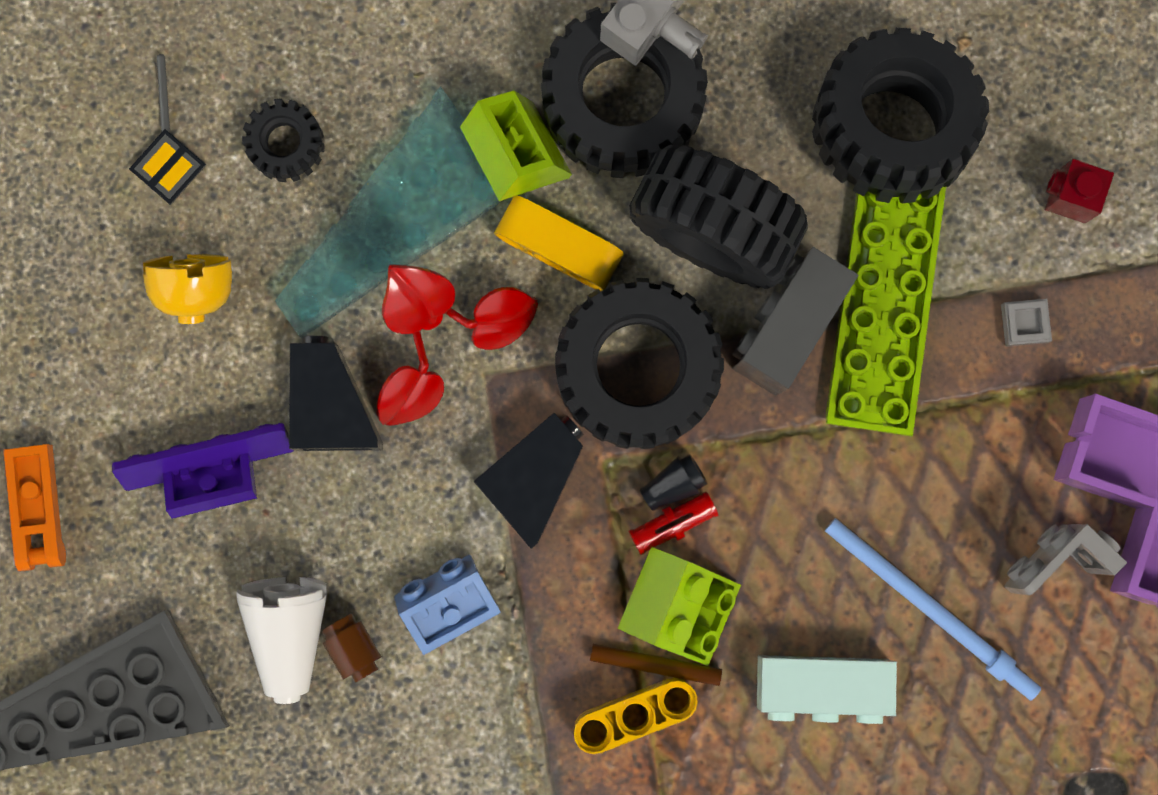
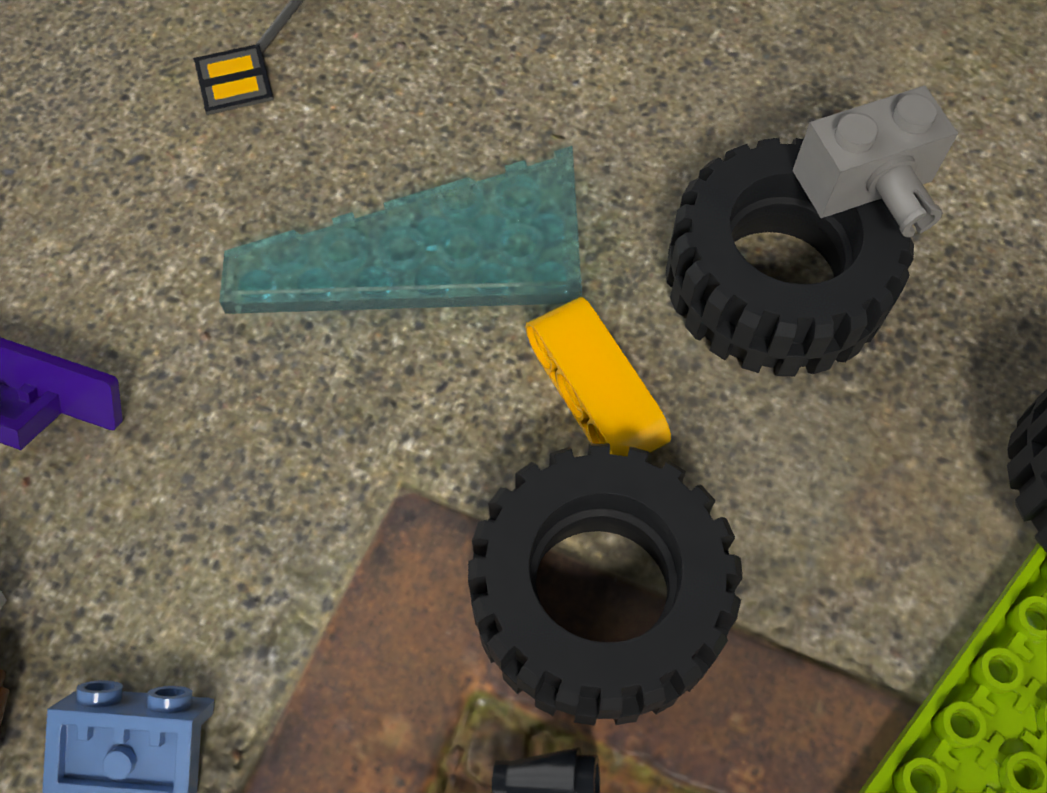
camera: 35 degrees right, 20 degrees down
(188, 285) = (146, 181): yellow cylinder -> none
(283, 115) = (365, 87): black tyre -> none
(326, 402) = (190, 393): black slope -> none
(416, 302) = (367, 293): red plant -> none
(513, 145) = (614, 237): lime slope -> none
(533, 476) = (361, 647): black slope -> none
(719, 216) = (838, 442): black tyre -> none
(793, 320) = (859, 651): dark grey brick -> none

